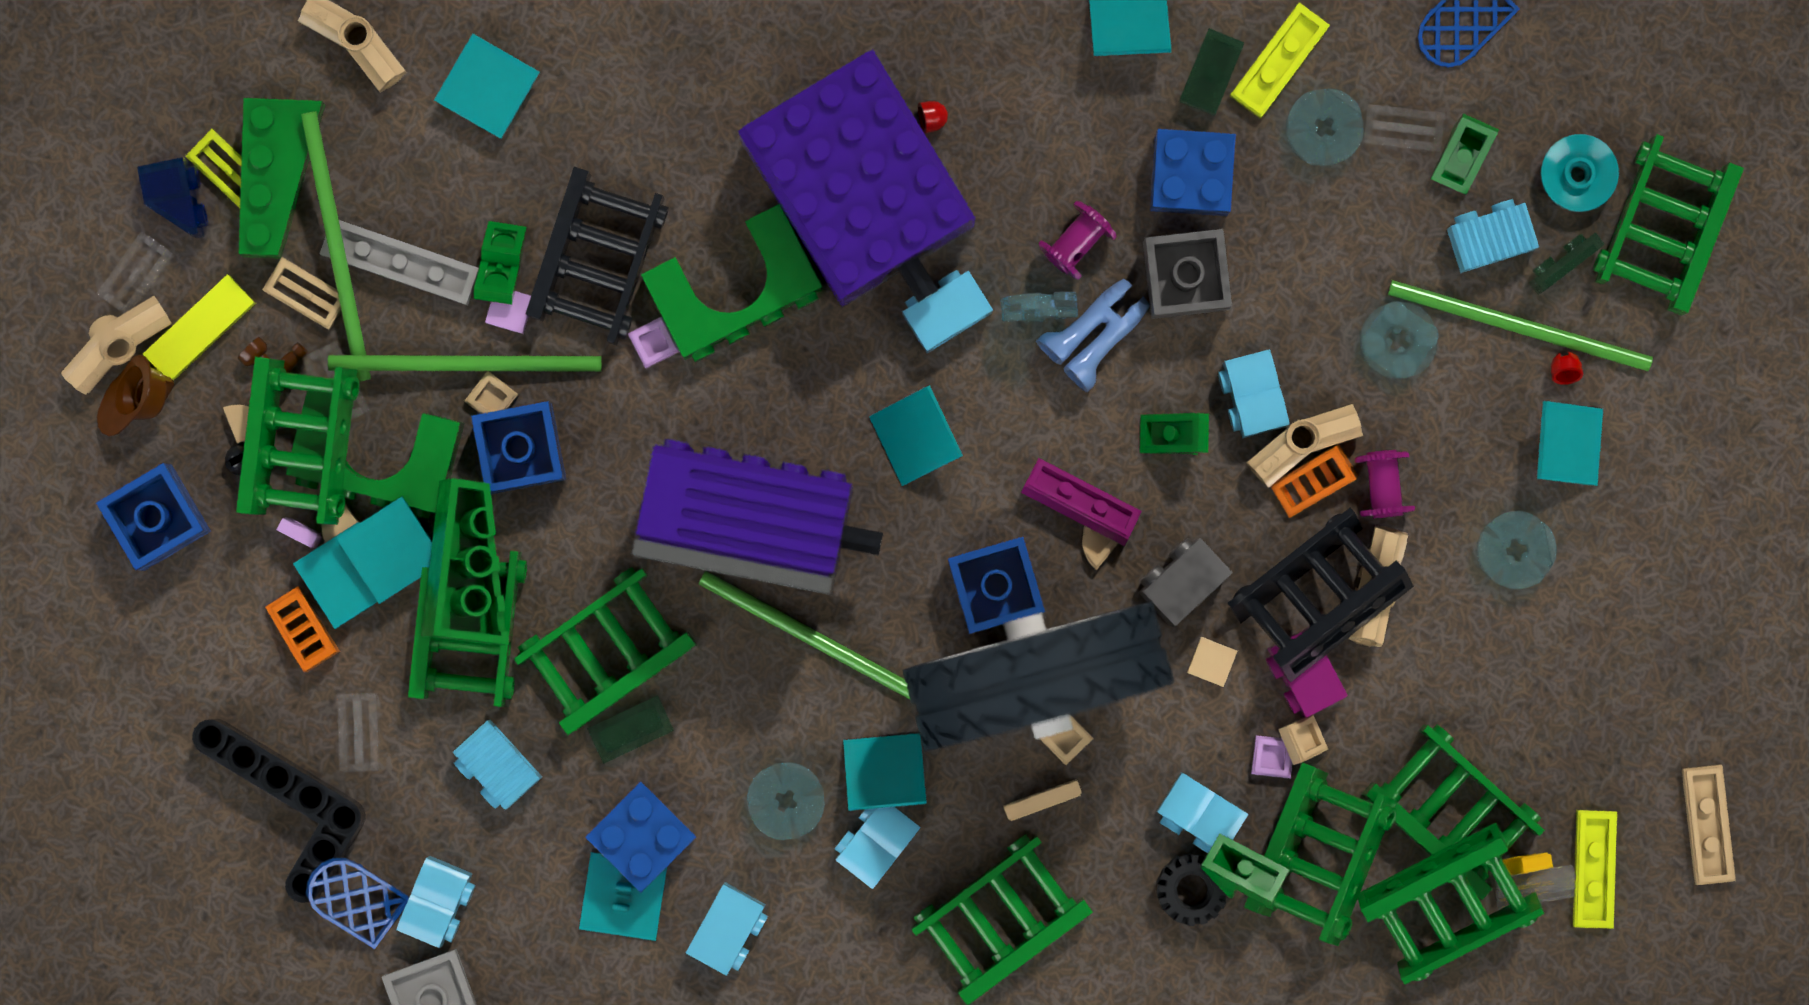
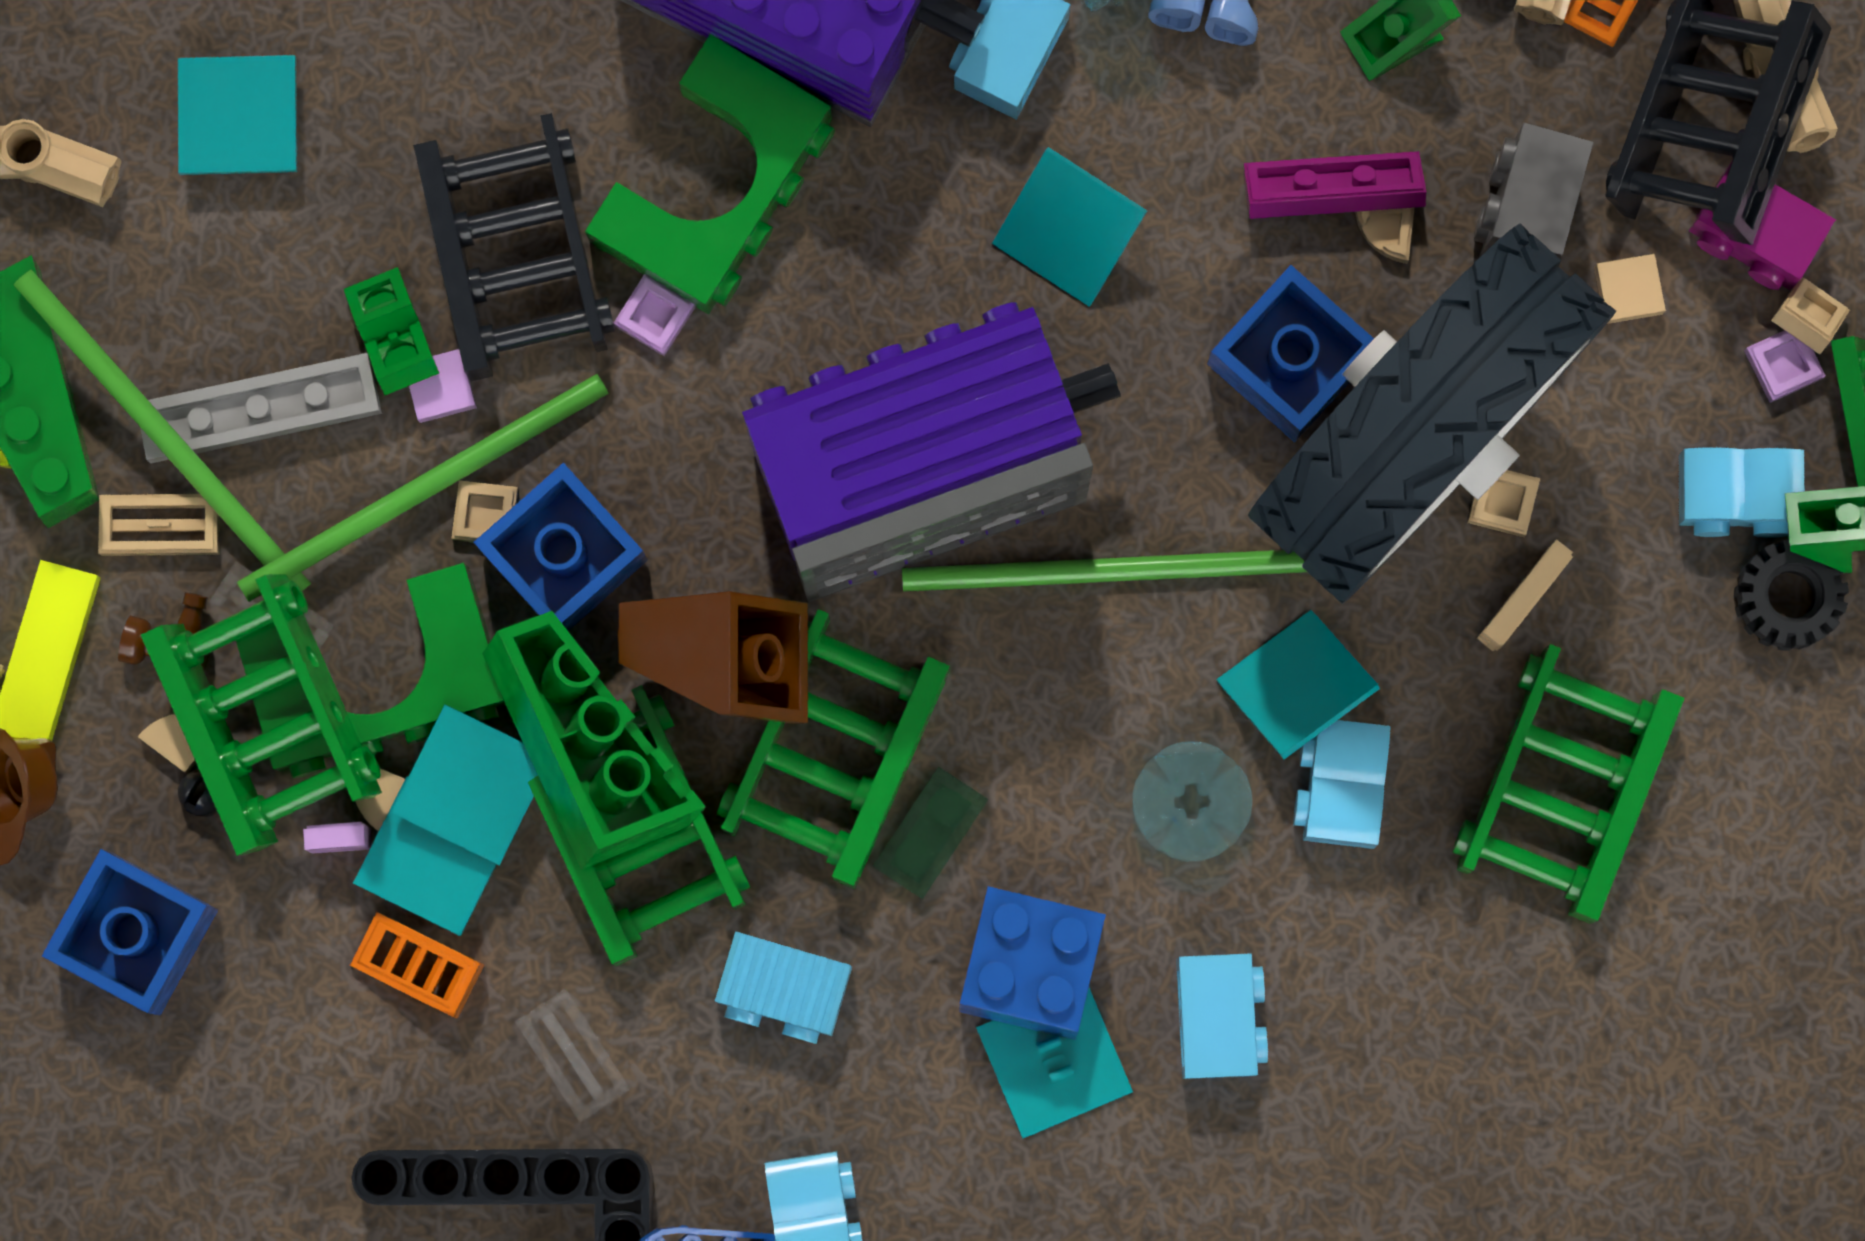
camera: 30 degrees left, 5 degrees down
(569, 565) = (723, 651): none -> reddish brown slope

